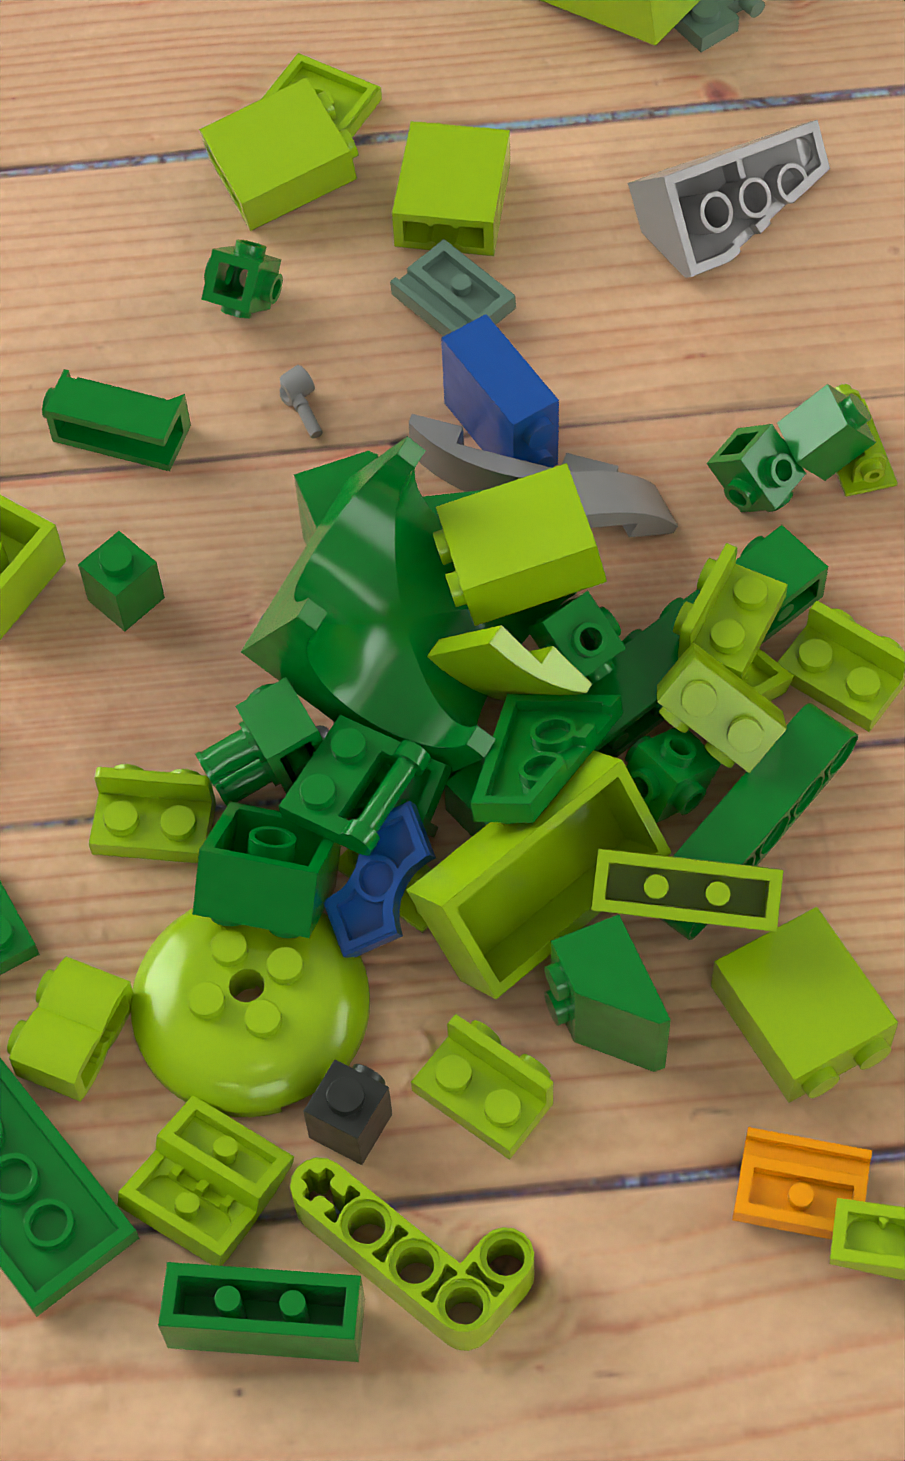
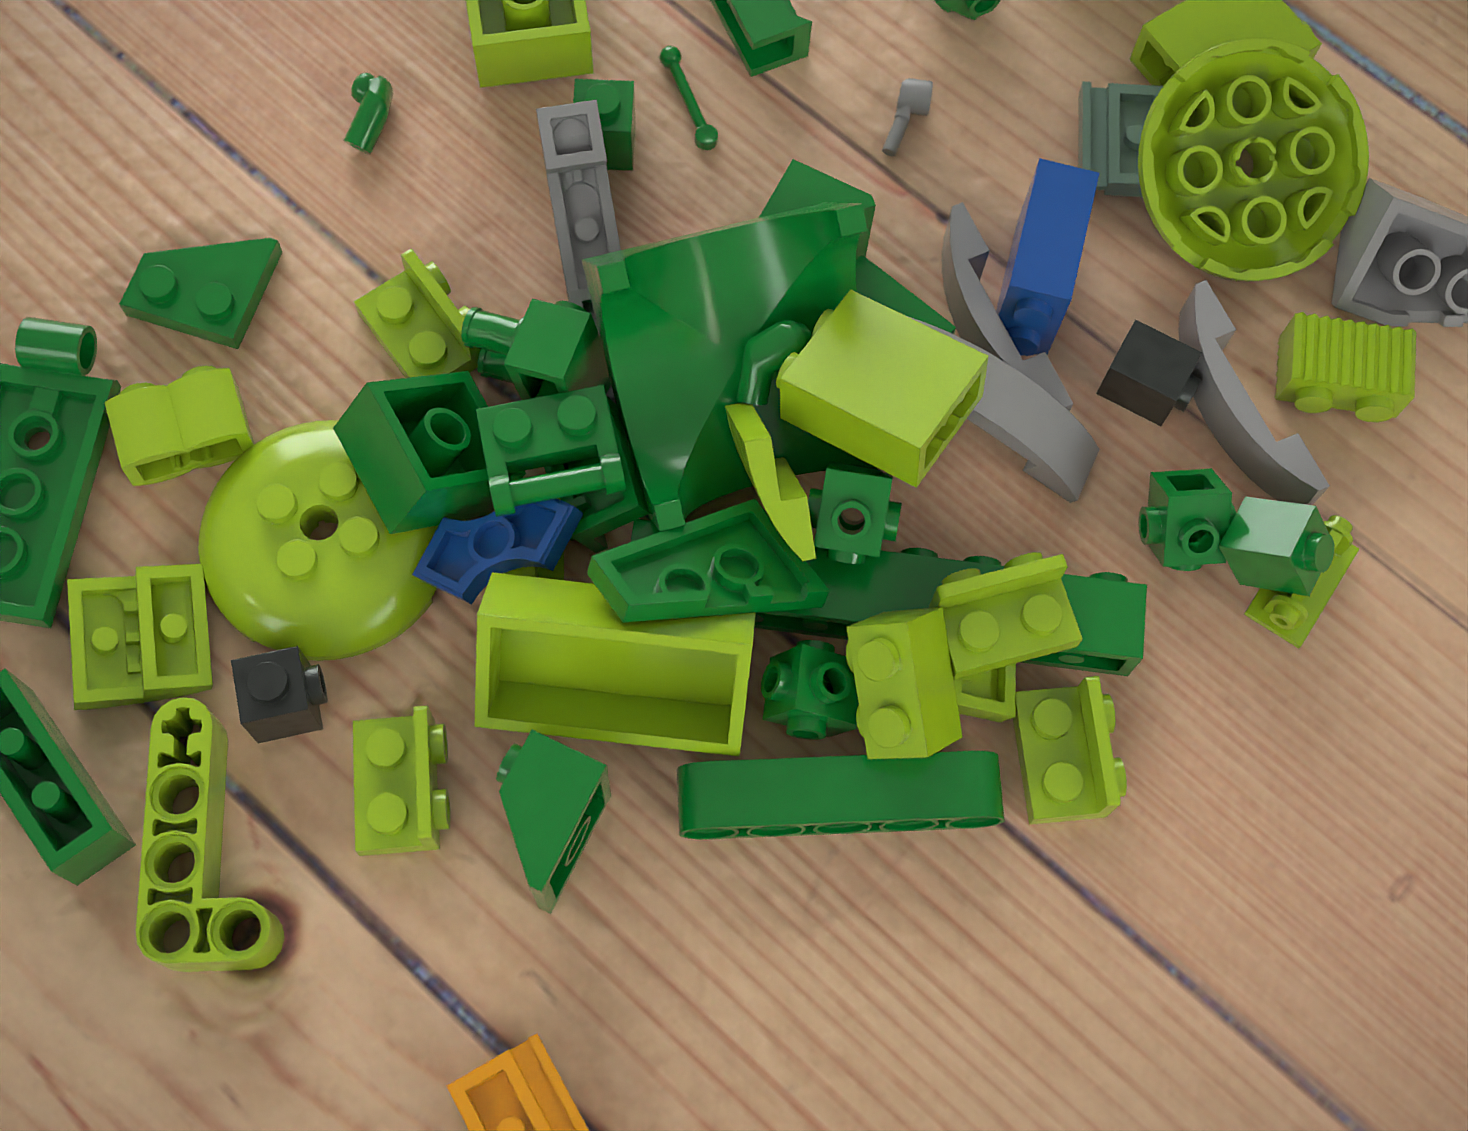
camera: 40 degrees right, 10 degrees up
(174, 642) = (578, 190): none -> light grey slope
(188, 530) = (706, 135): none -> green hinge
(422, 599) = (765, 355): none -> green arm
(578, 202) = (1303, 147): none -> lime brick
(635, 412) = (1151, 374): none -> pearl dark grey brick
(687, 889) = (689, 801): lime brick -> none
(702, 388) = (1279, 468): none -> light grey slope
(738, 304) = (1346, 367): none -> lime brick
(804, 1006) = (696, 988): lime brick -> none

